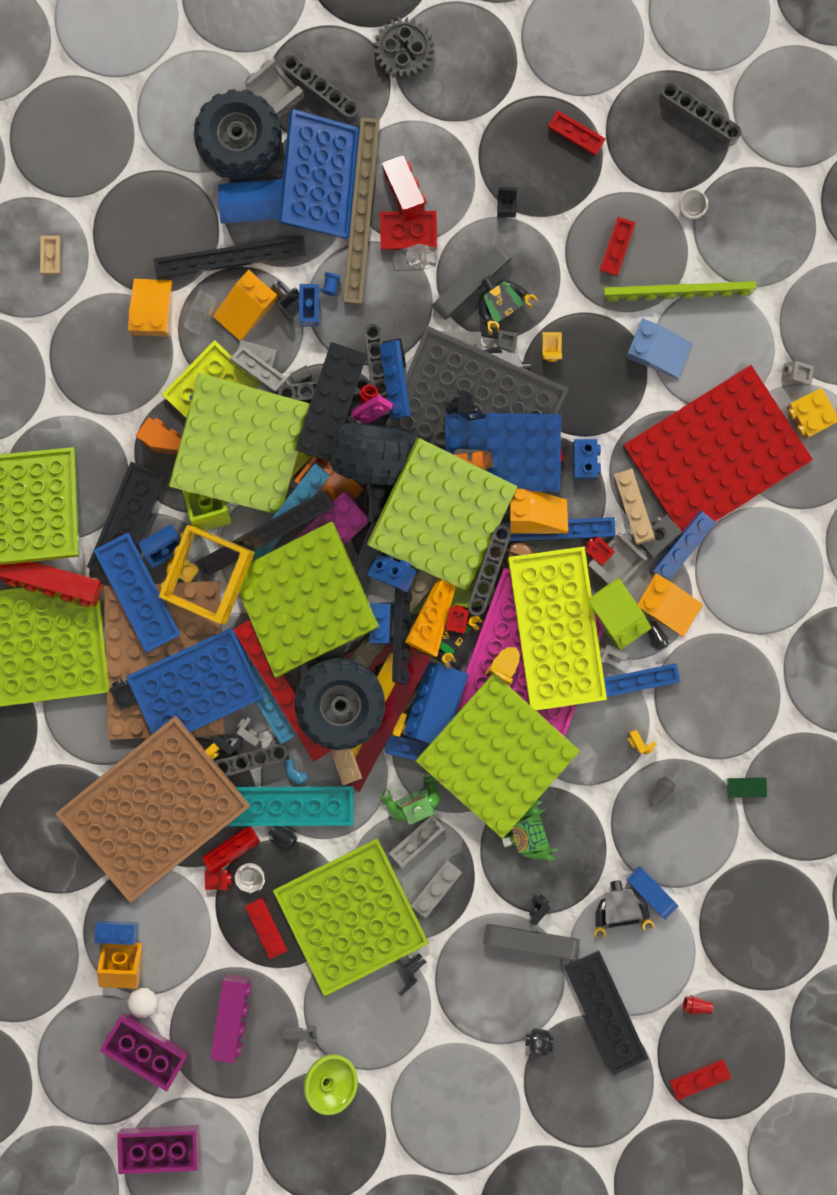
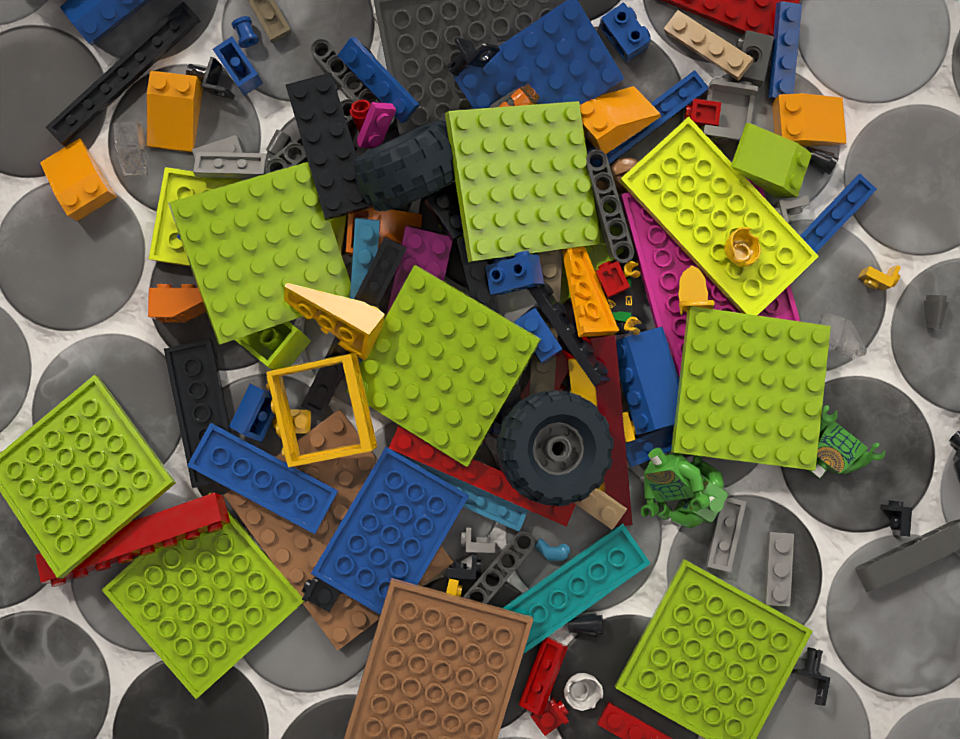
camera: 30 degrees left, 0 degrees up
(264, 528) = (345, 318): none -> yellow wedge
(402, 778) = (671, 479): none -> bright green torso
(556, 658) = (742, 247): none -> yellow hair

